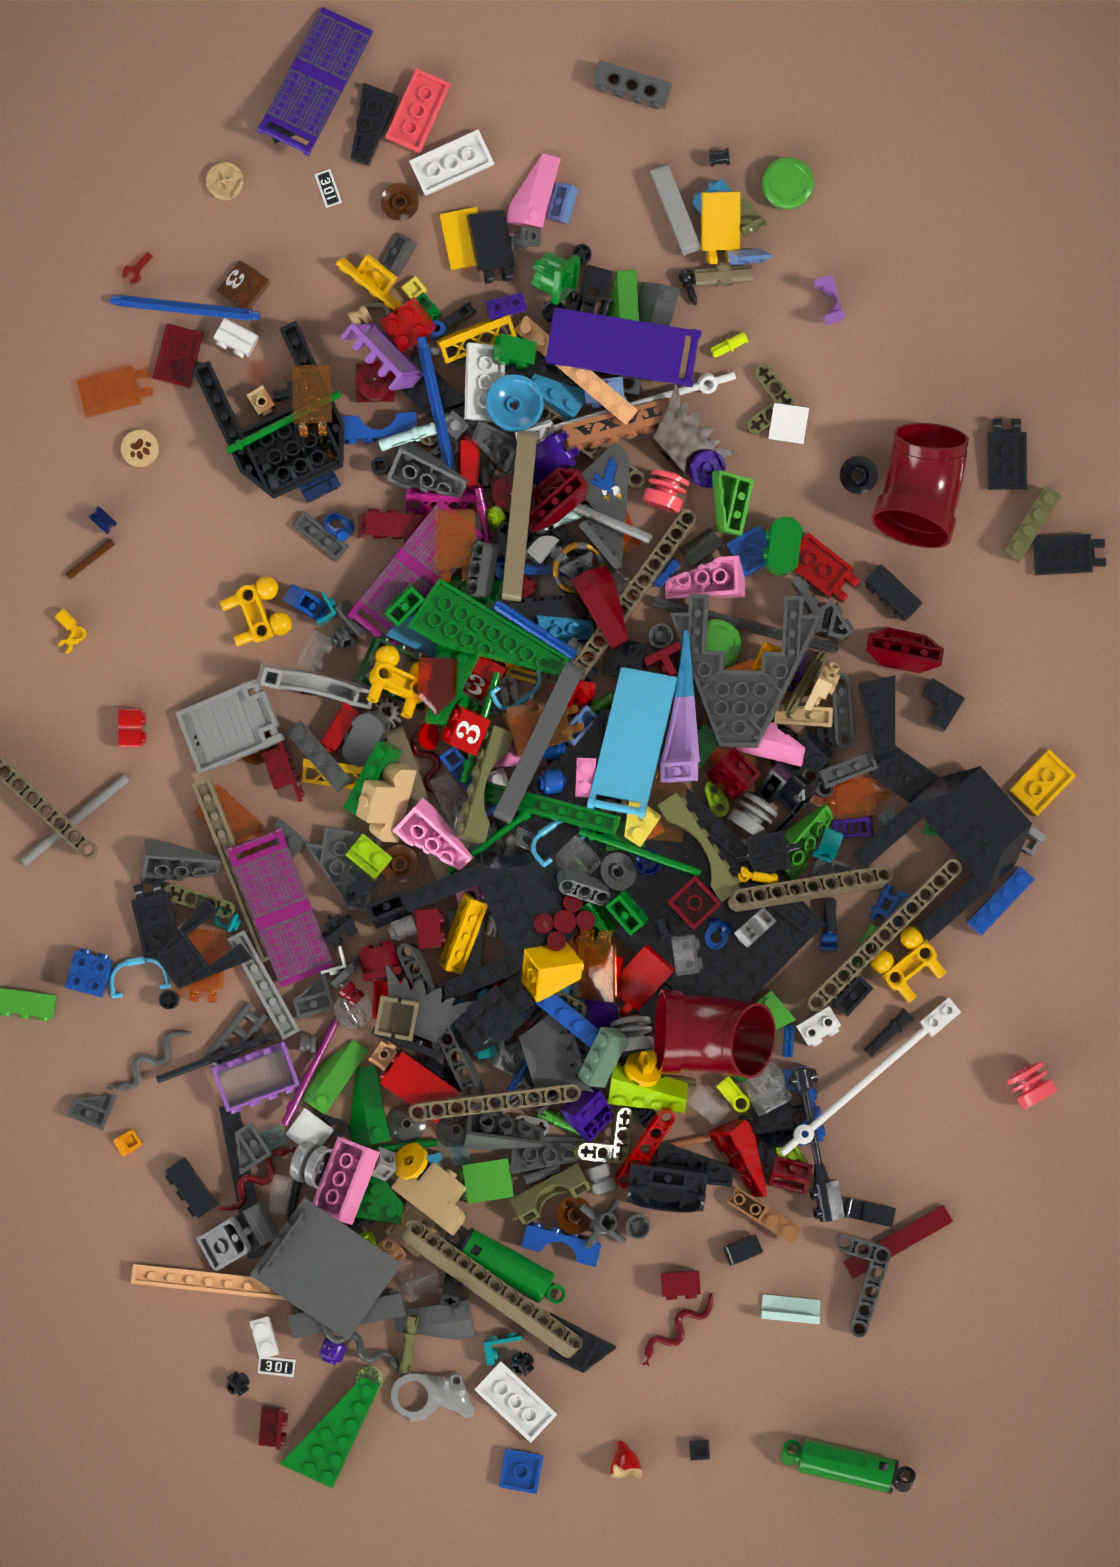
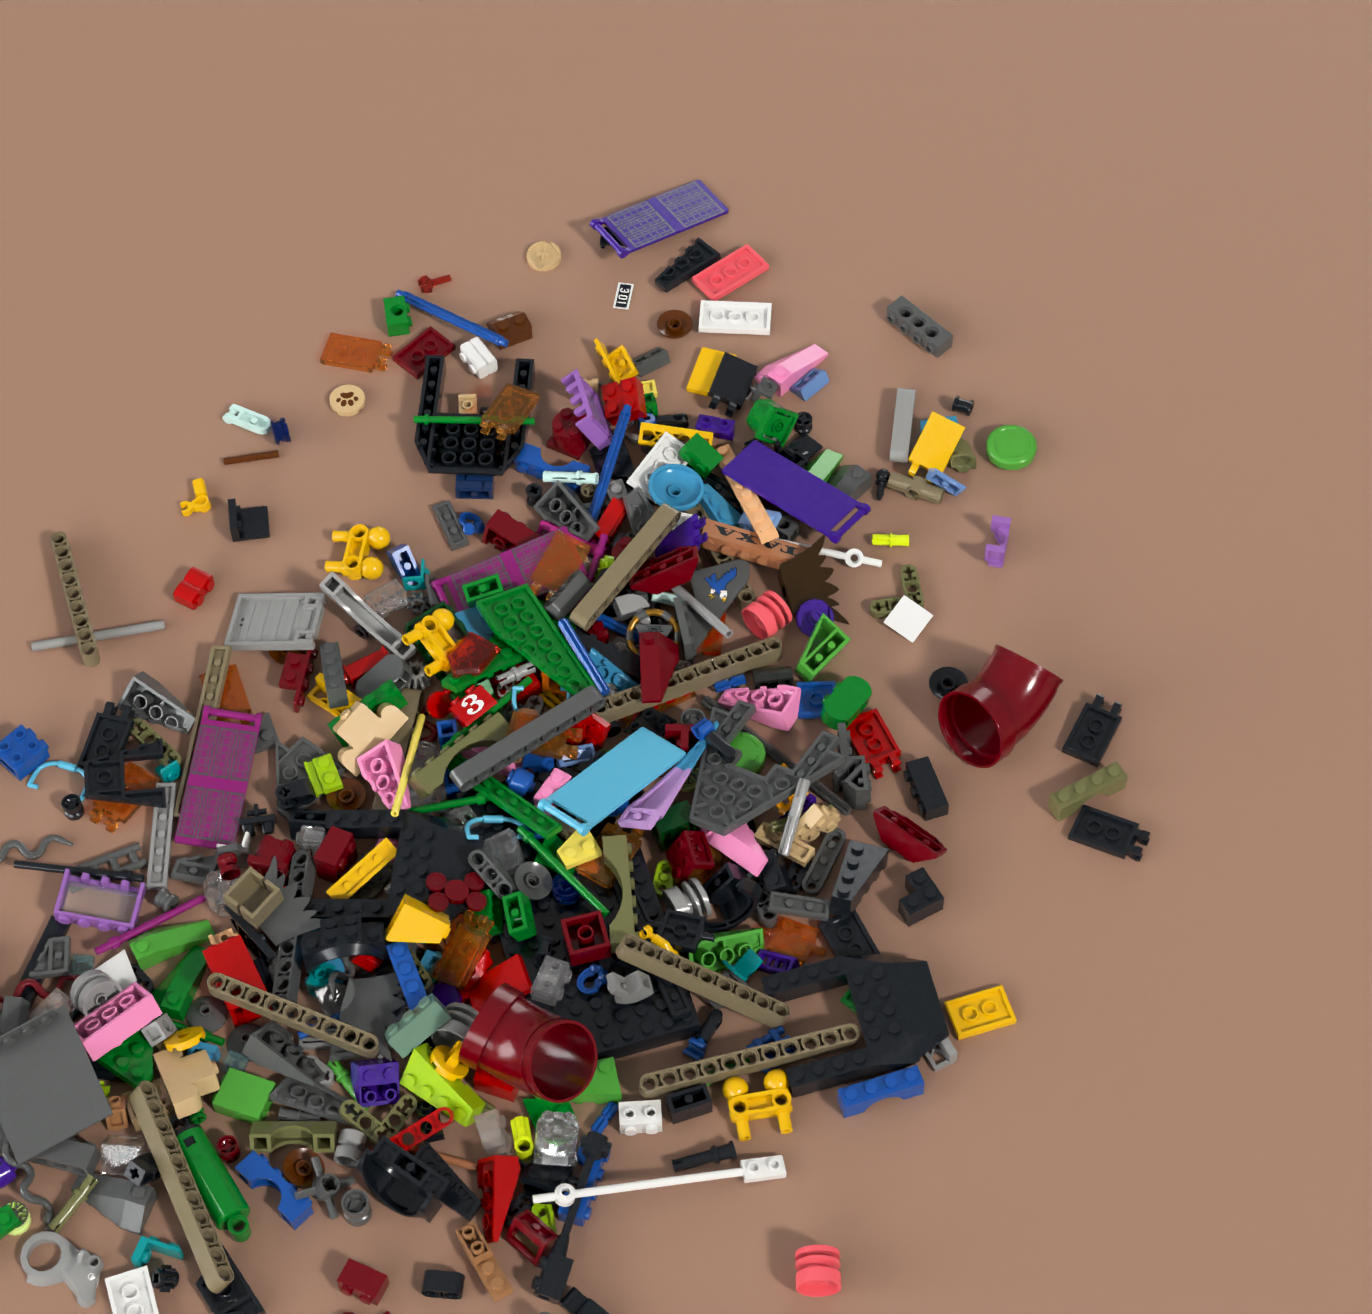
camera: 30 degrees right, 30 degrees down
(61, 520) = (247, 419): none -> light aqua plate
(131, 340) = (396, 316): none -> green brick
(135, 632) = (248, 522): none -> black bracket
(445, 817) = (408, 765): none -> light yellow piece
(482, 675) = (515, 674): none -> light grey pin
(502, 1231) = (227, 1144): none -> dark red wheel
(684, 651) = (705, 730): none -> black piece
(805, 696) = (793, 817): none -> light grey axle

